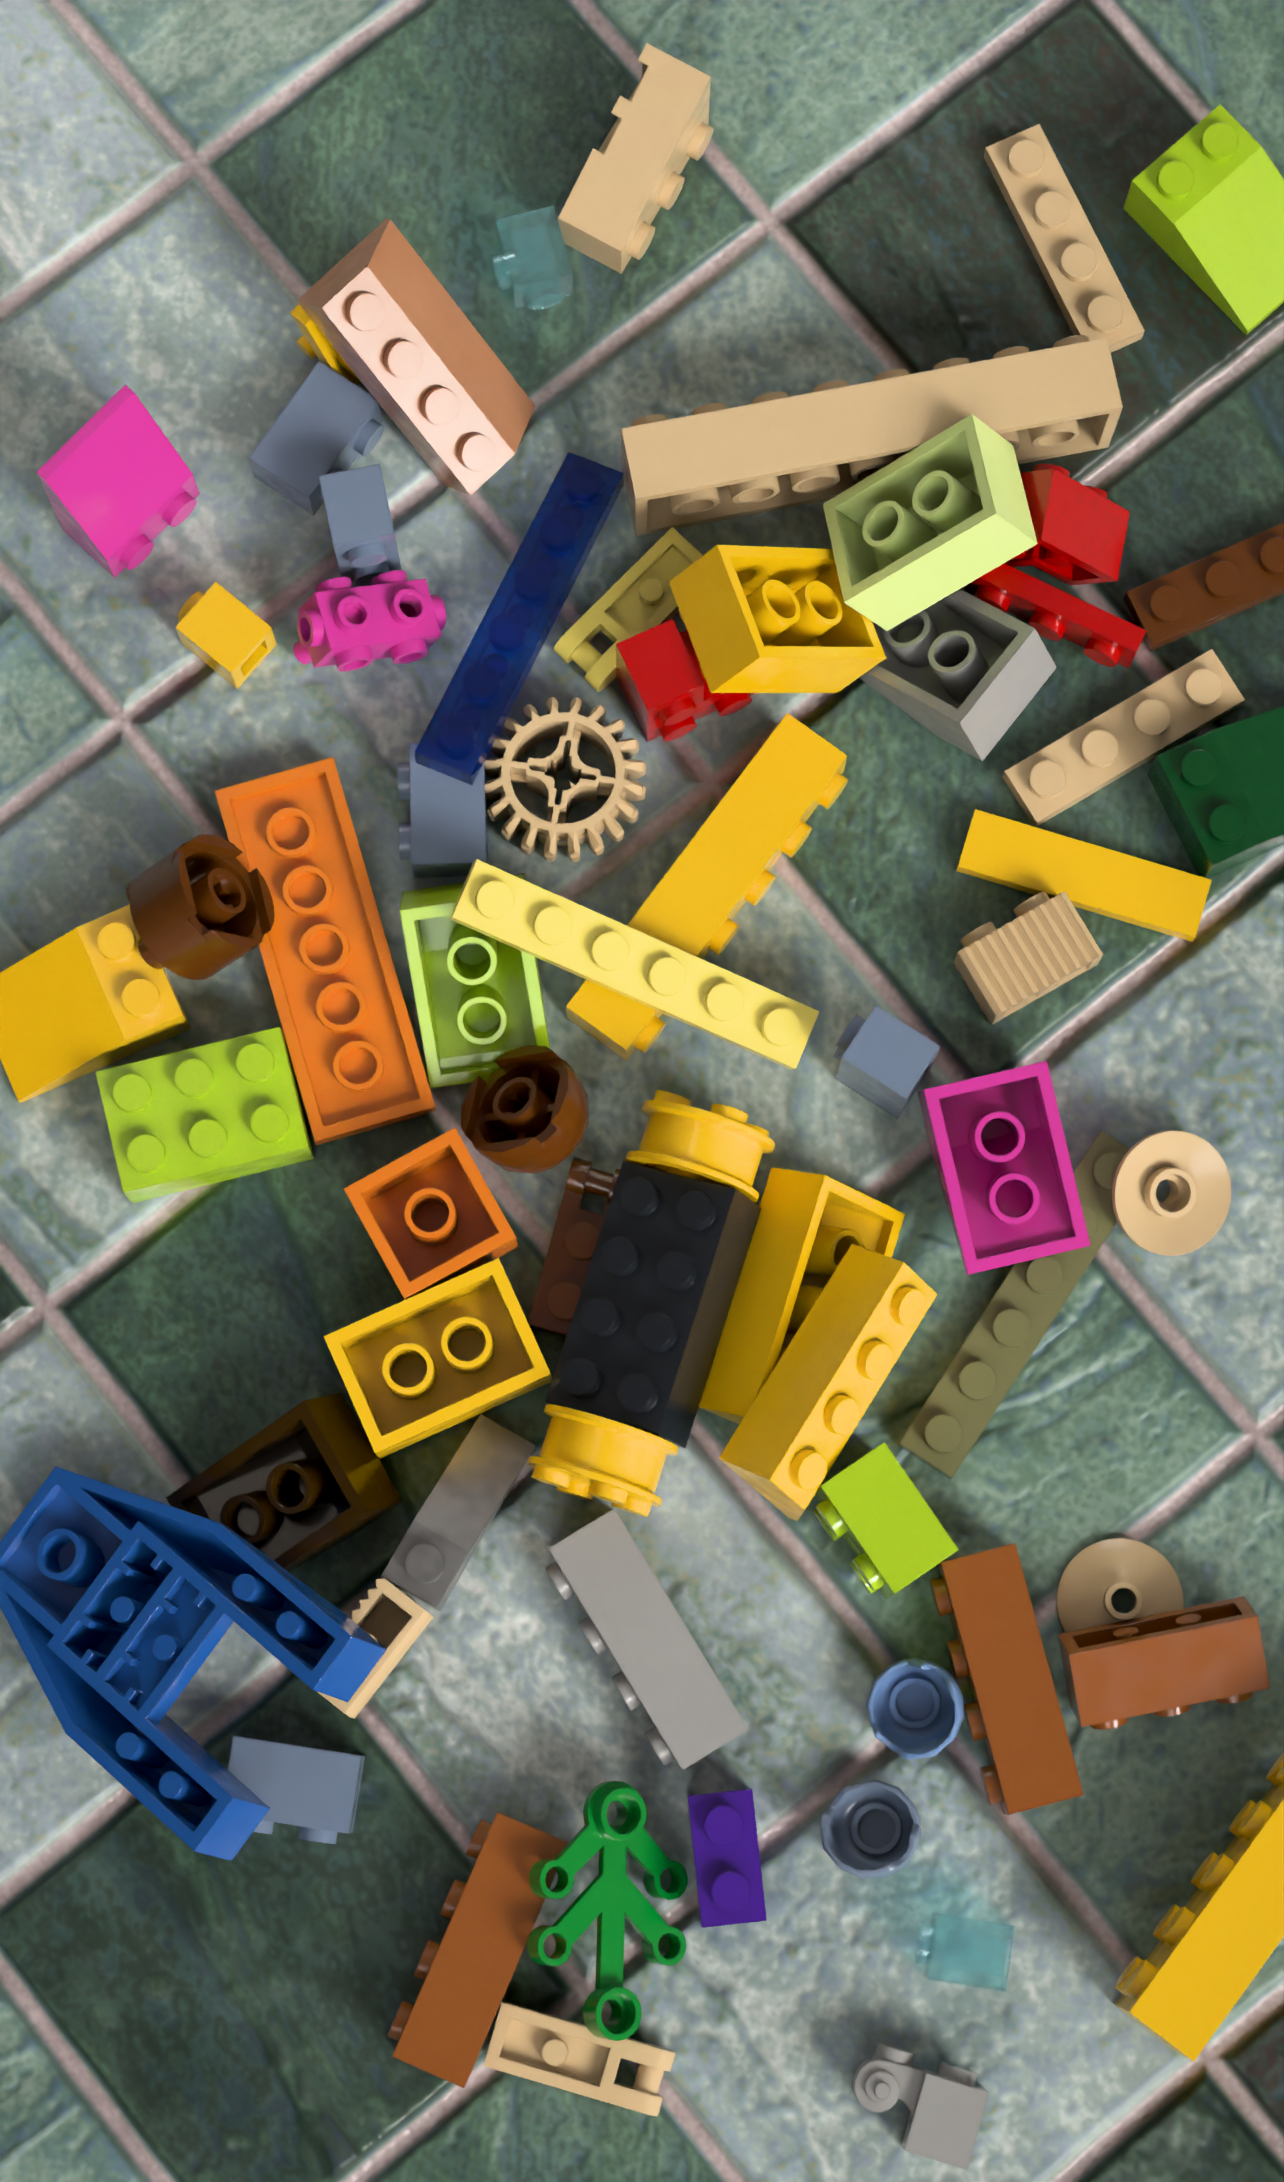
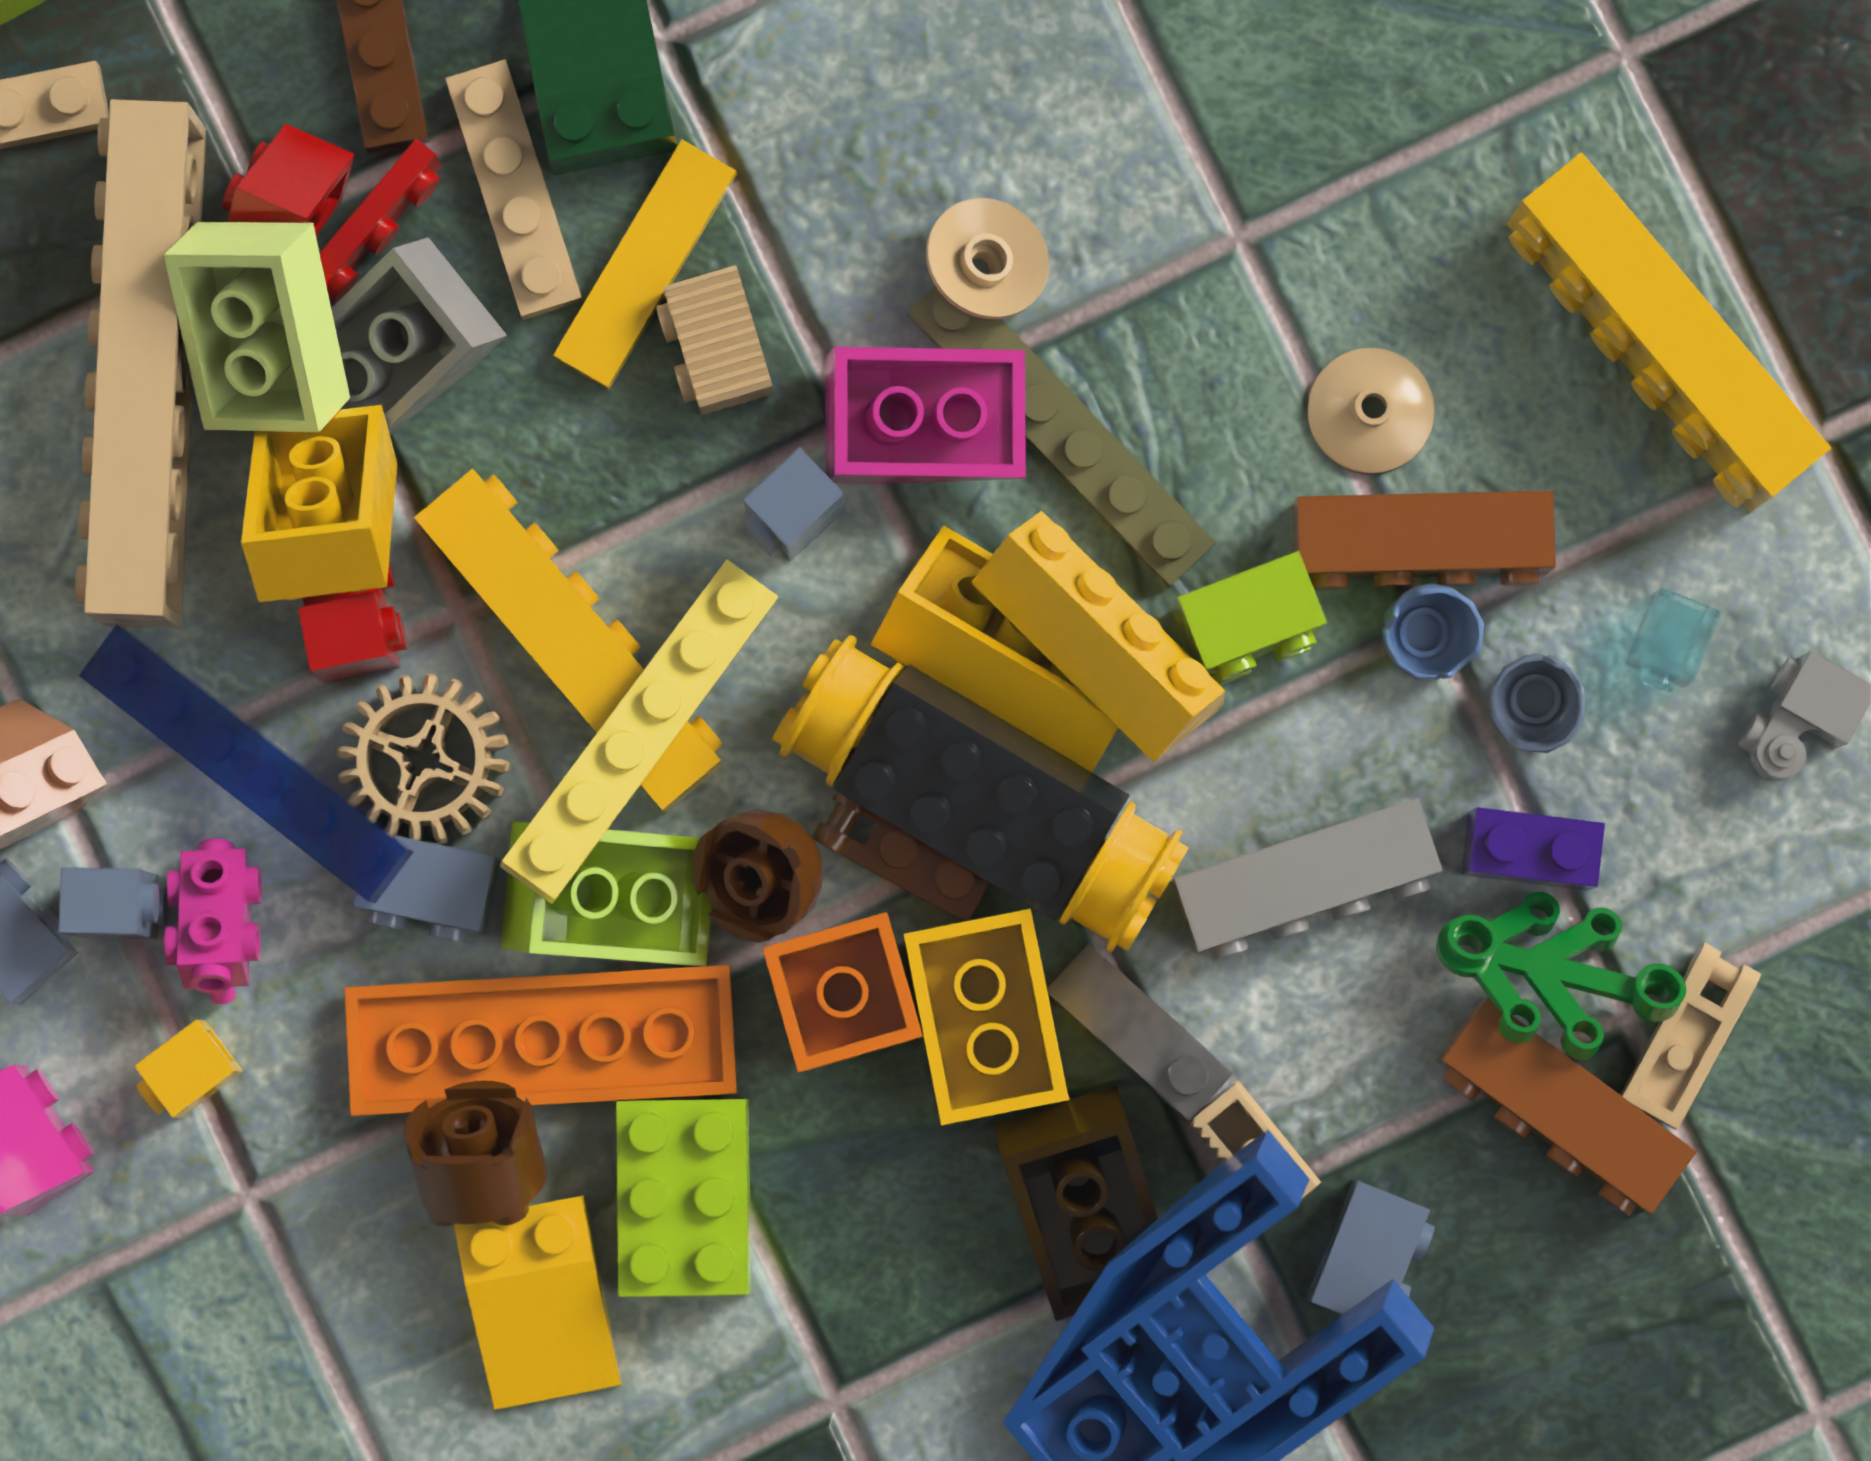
camera: 80 degrees left, 5 degrees up
(629, 607) = (260, 645): light yellow plate -> none
(1164, 1663) = (1442, 382): dark orange brick -> none

